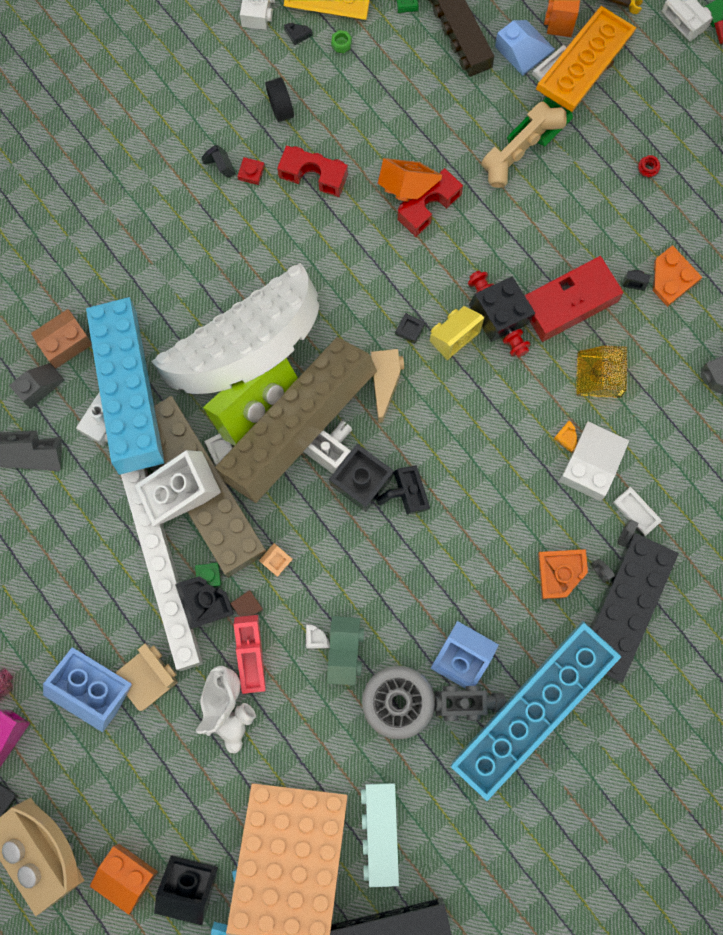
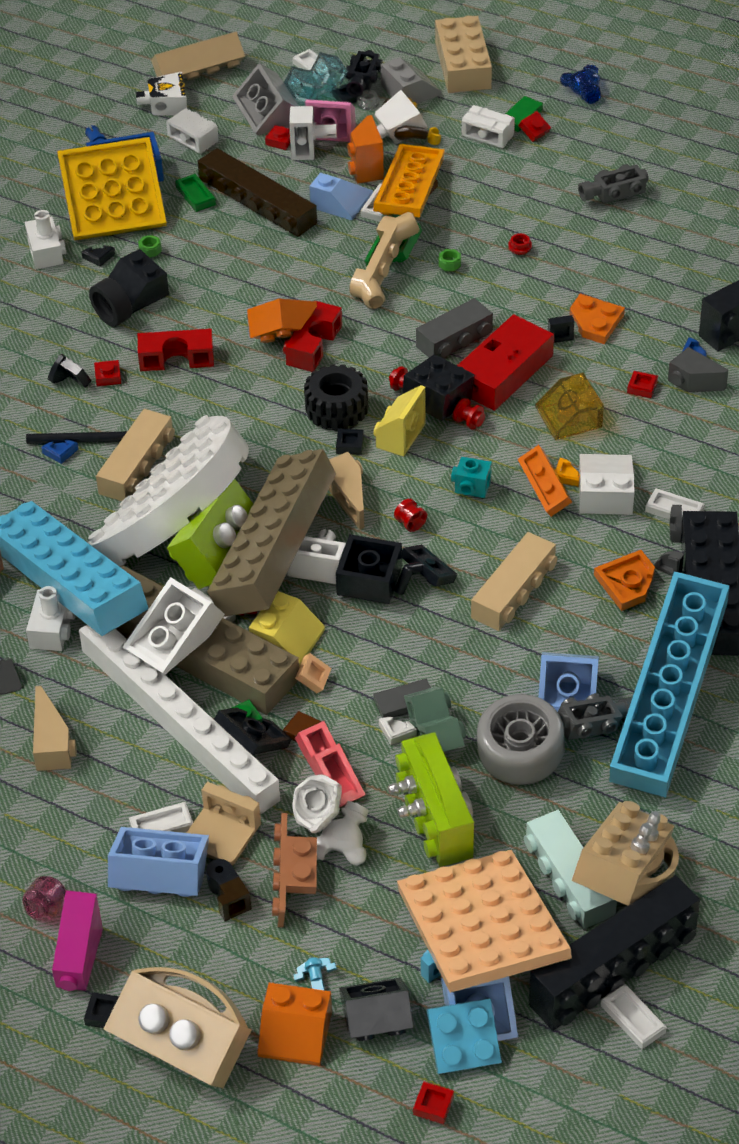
camera: 25 degrees left, 30 degrees down
(58, 534) = (51, 739): none -> tan slope
(108, 648) = (170, 818): none -> white tile
(129, 734) = (232, 893): none -> leg
(160, 830) = (314, 966): none -> medium azure piece
(181, 239) = (60, 451): none -> blue tile
(182, 742) = (296, 867): none -> nougat bracket
(200, 232) = (79, 437): none -> black bar
(234, 274) = (135, 455): none -> tan brick
(275, 510) = (288, 625): none -> light yellow slope
(308, 740) = (436, 799): none -> lime piece
(311, 81) = (140, 279): none -> black slope
(324, 610) = (392, 701): none -> dark grey tile
(421, 431) = (409, 514): none -> red wheel
(422, 265) = (336, 397): none -> black tyre
(422, 859) = (626, 853): none -> tan piece
(470, 535) = (513, 581): none -> tan brick
(486, 415) = (472, 477): none -> teal brick
(544, 441) = (544, 480): none -> orange plate
(548, 244) = (454, 329): none -> dark grey brick
(581, 160) = (449, 260): none -> bright green tile
(676, 367) = (642, 384): none -> red tile

